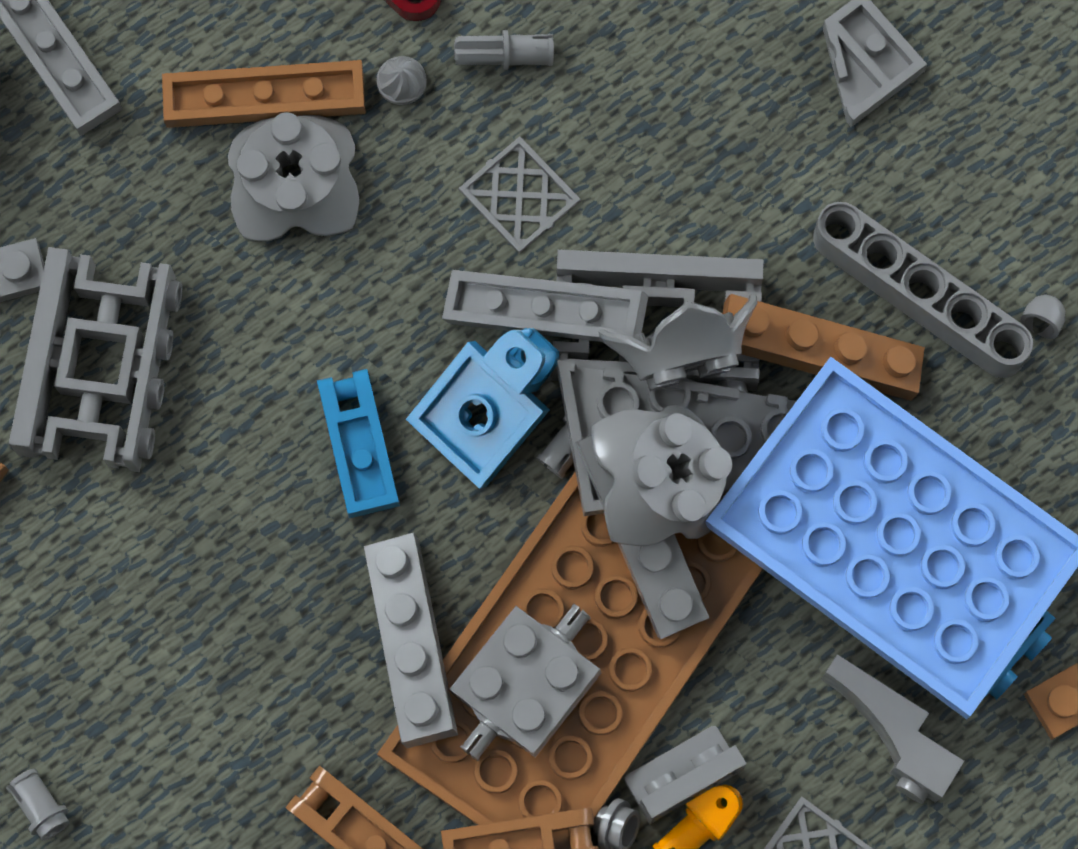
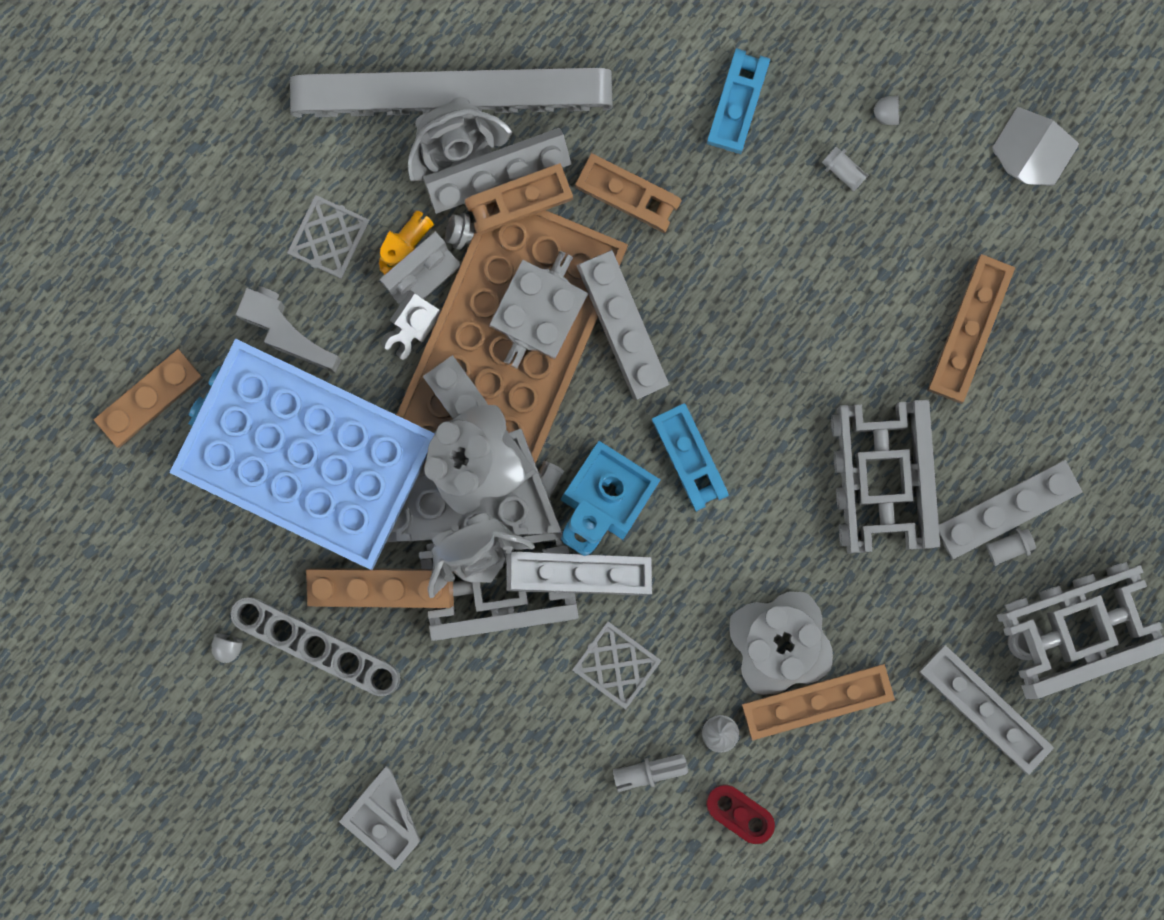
camera: 165 degrees right, 10 degrees up
(709, 709) = (413, 319): none -> plate

